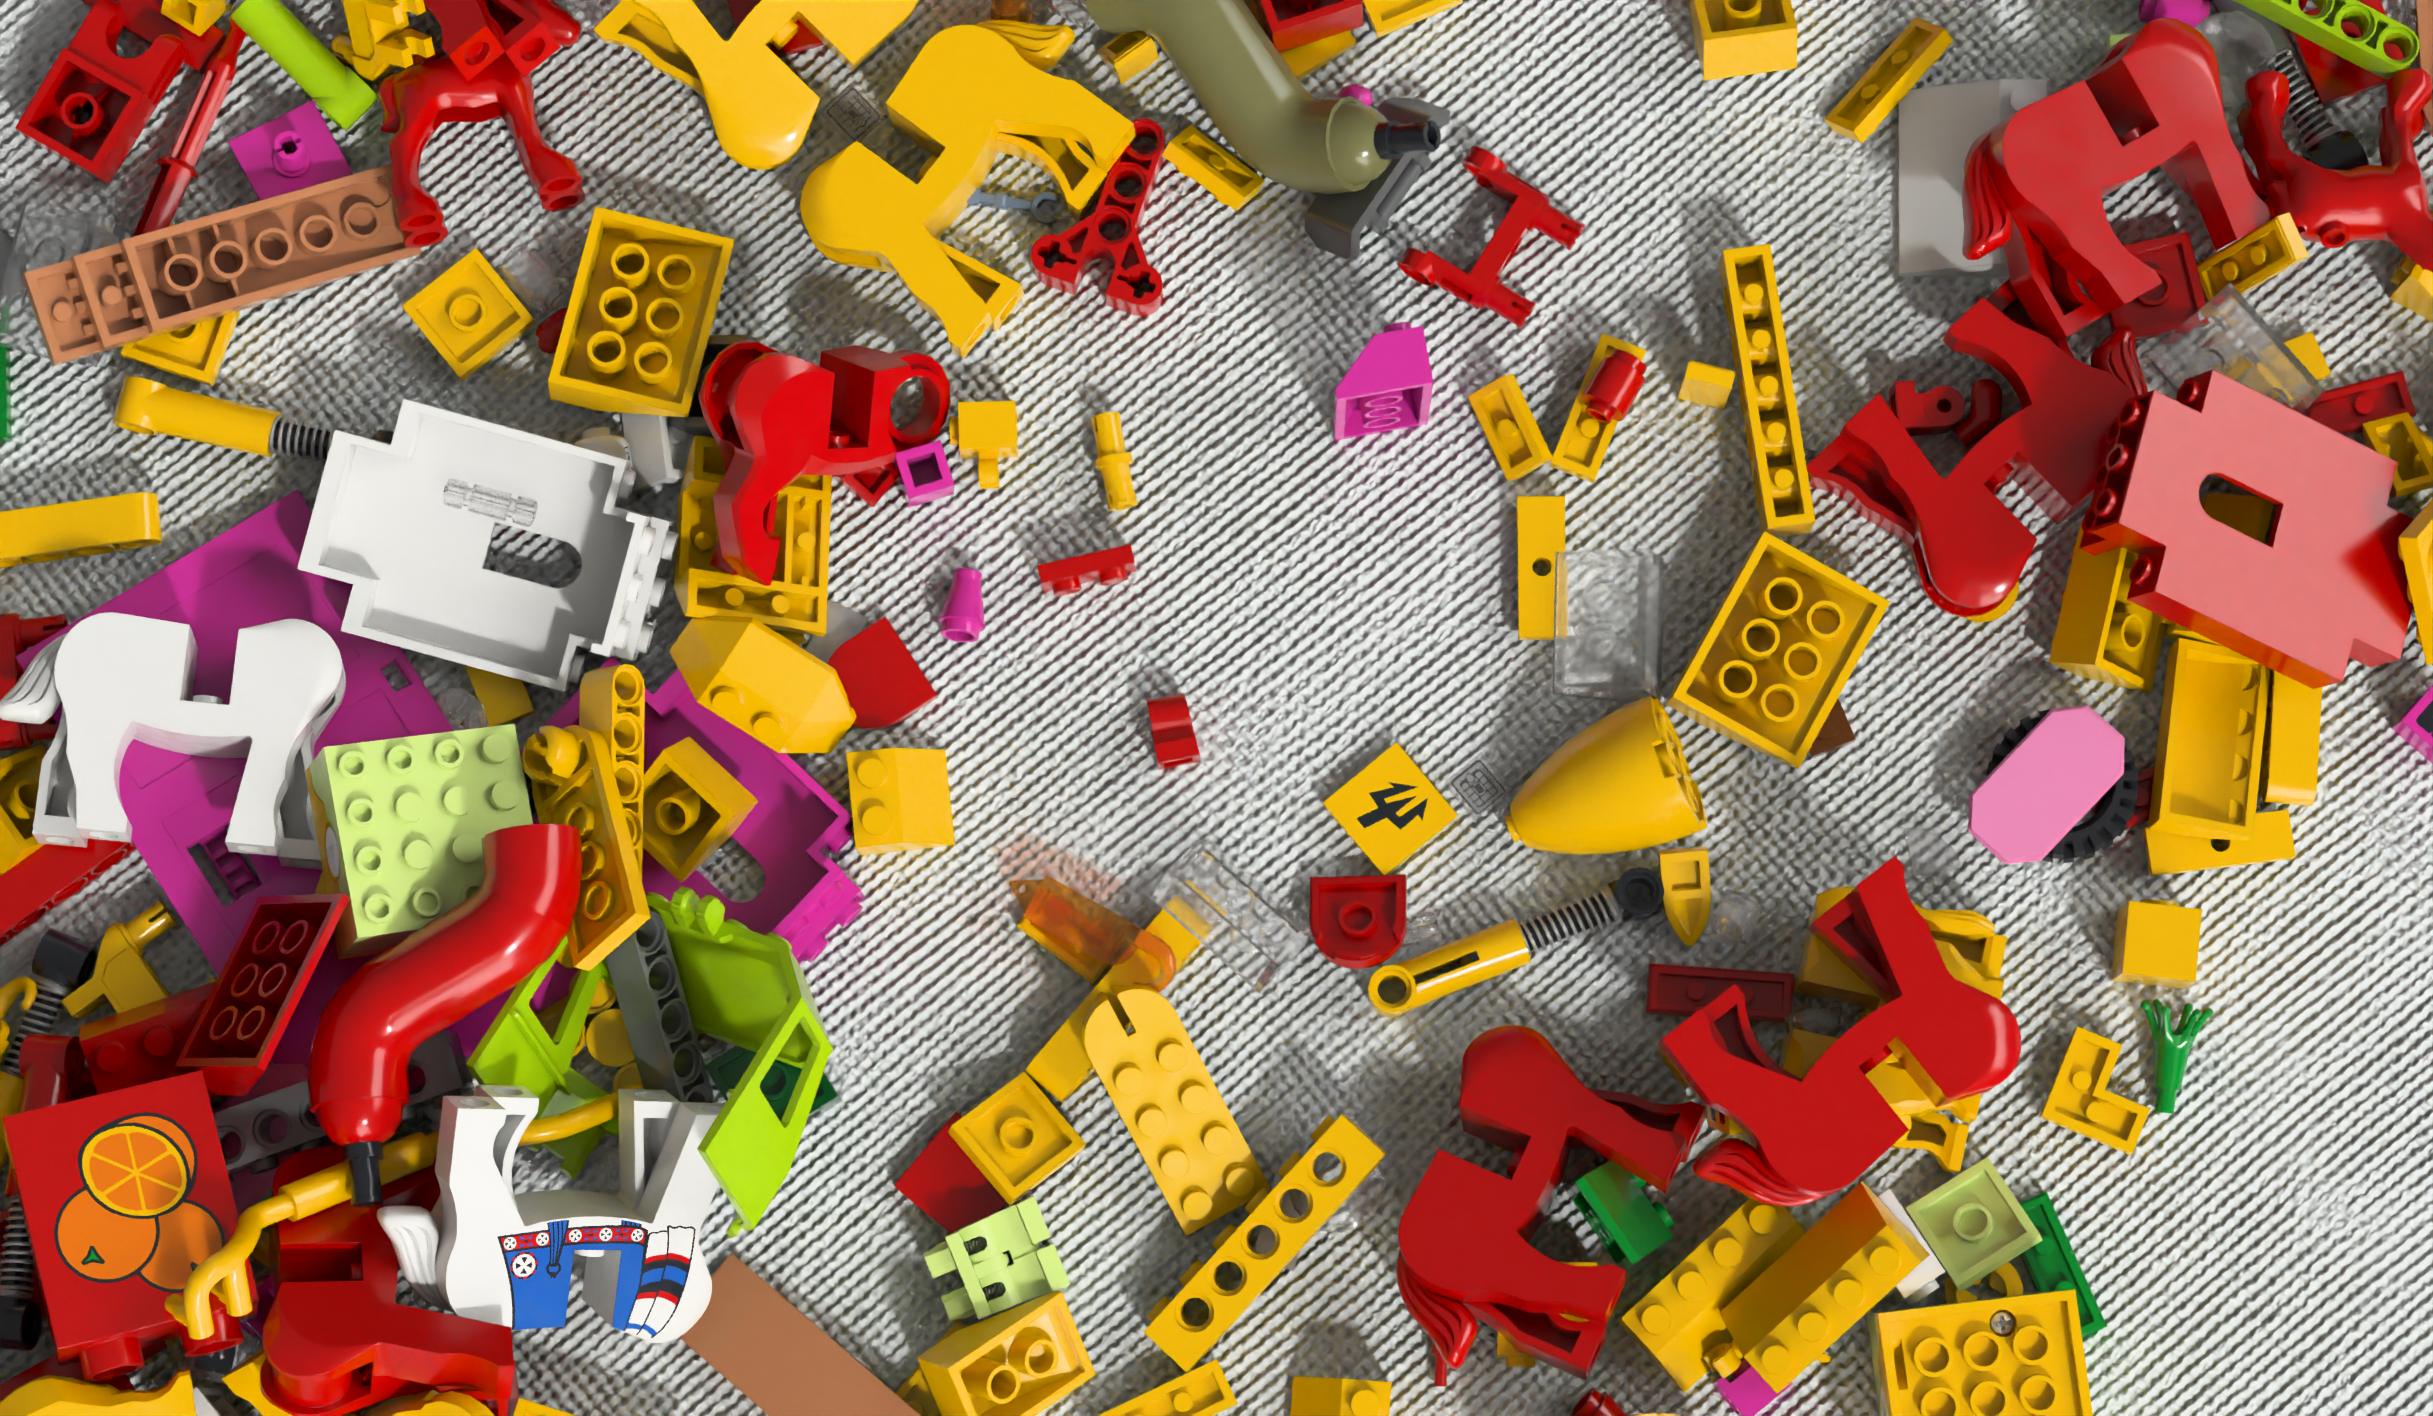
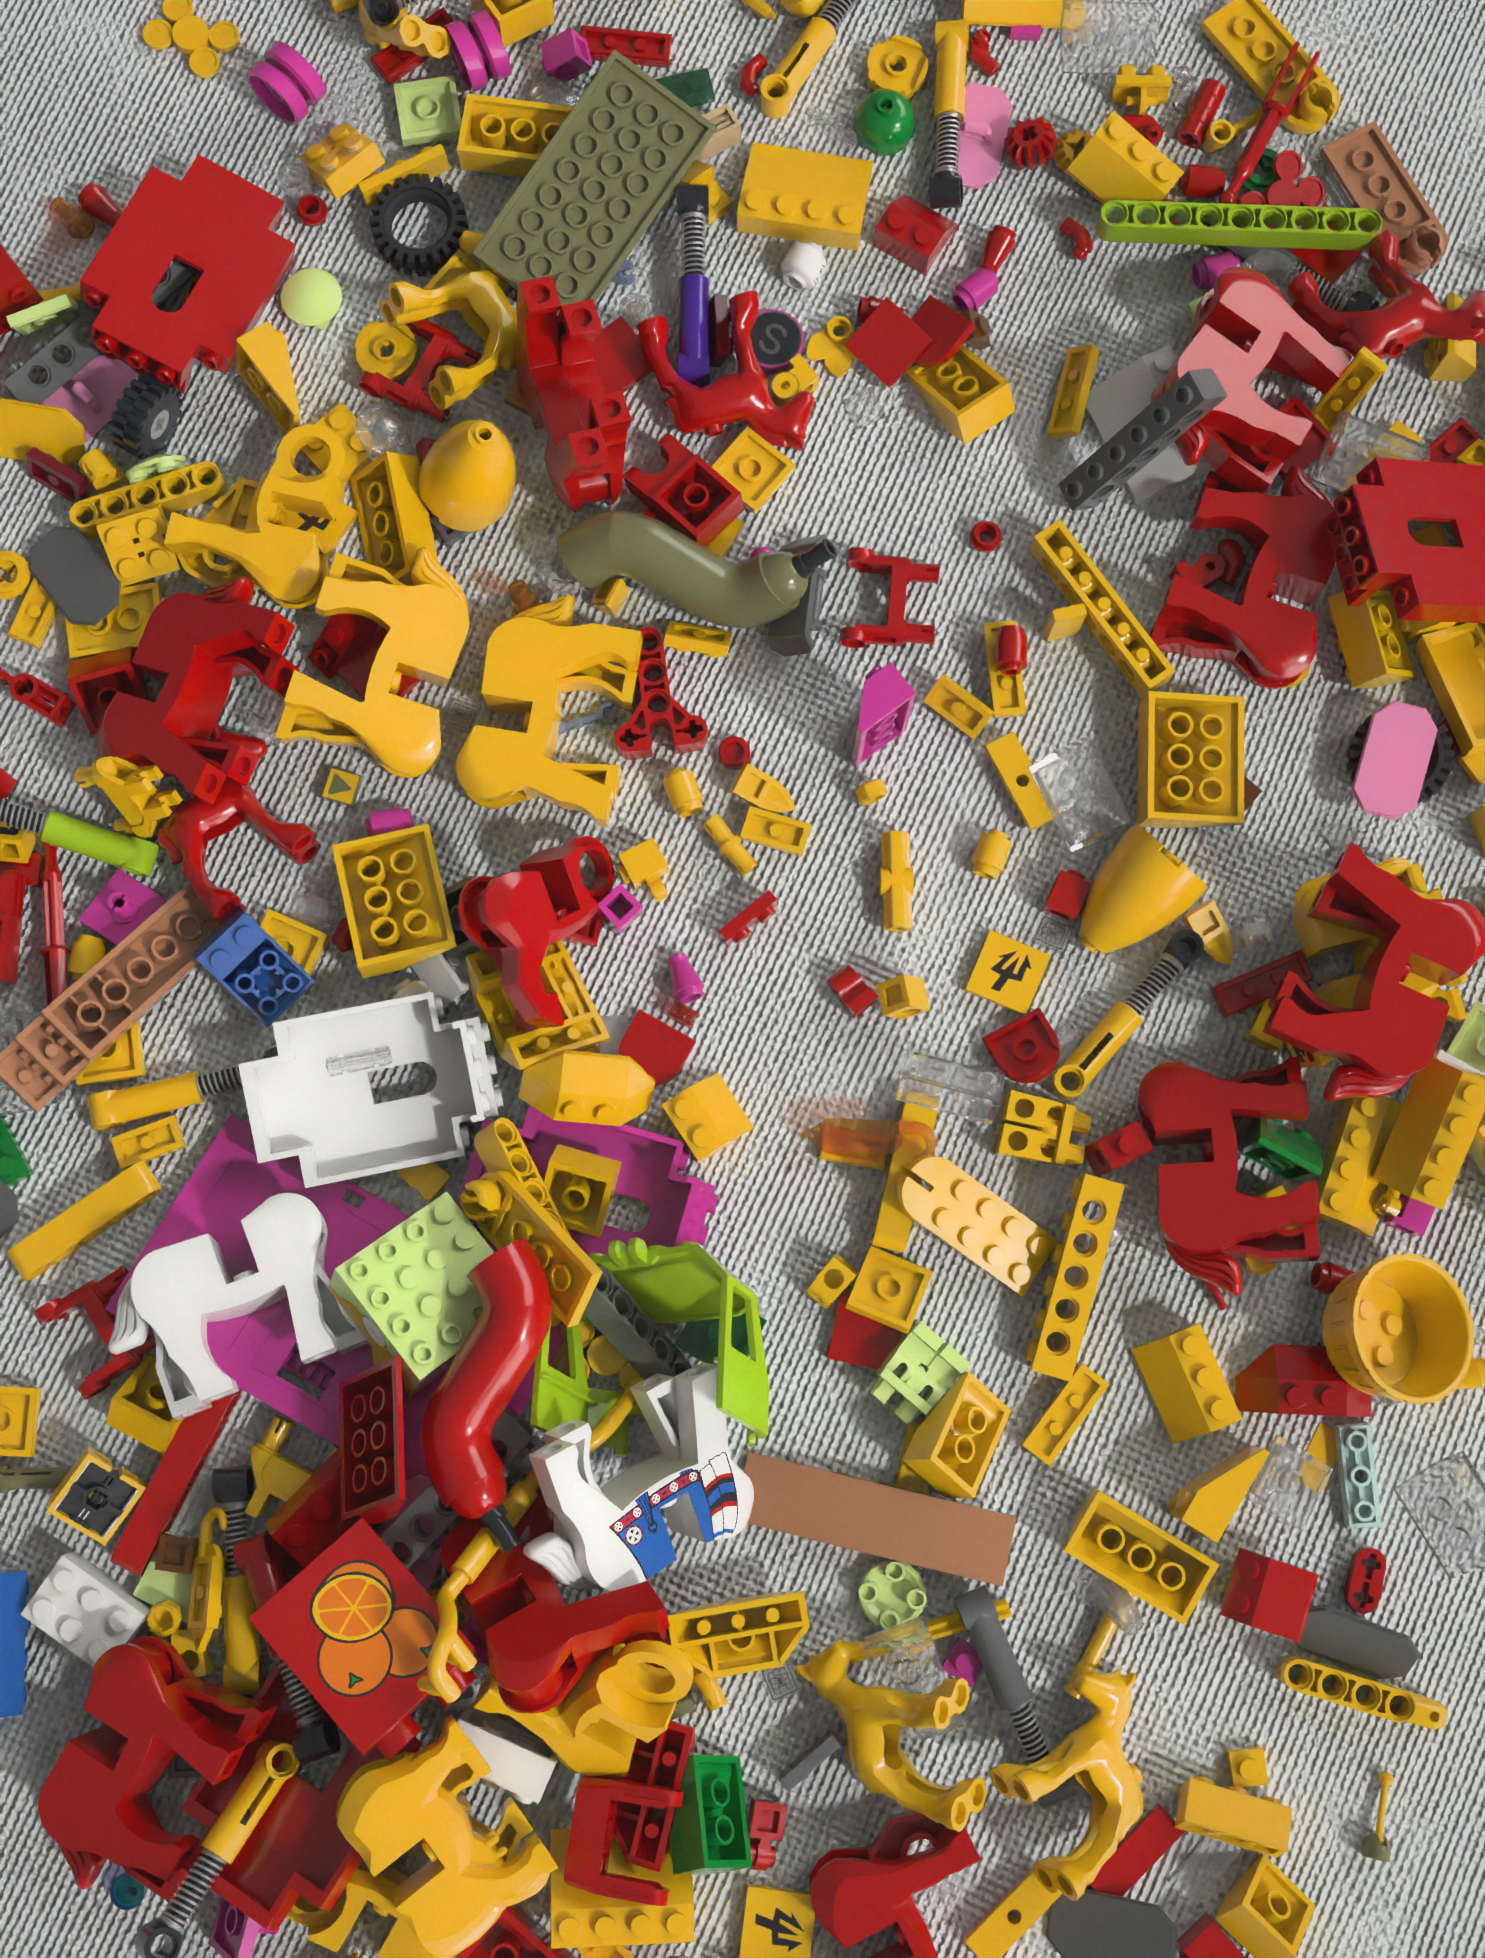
camera: 30 degrees left, 0 degrees up
(174, 473) = (148, 1142): none -> yellow plate
(213, 192) = (84, 955): none -> yellow brick
(418, 314) = (253, 967): none -> blue slope
(650, 135) = (342, 787): none -> tile
(687, 210) = (388, 821): none -> dark pink brick
(937, 652) = (683, 1015): none -> clear red bush
(950, 1090) = (831, 1281): none -> yellow leg
(1088, 361) = (683, 792): none -> yellow brick
(1182, 473) = (775, 831): none -> yellow plate
(1183, 342) = (734, 752): none -> red tile
(1193, 410) = (761, 790): none -> yellow plate
(1232, 771) = (903, 997): none -> yellow brick
(1305, 617) = (896, 881): none -> yellow piece
(1326, 1051) = (1051, 1131): none -> yellow hips
(1334, 483) = (870, 792): none -> yellow tile
(1412, 1108) = (1118, 1148): none -> red torso
(1449, 643) = (991, 854): none -> yellow brick
(1520, 747) = (1067, 895): none -> red brick
(1671, 204) = (990, 529): none -> red plate
(1921, 193) = (1143, 438): none -> dark grey brick

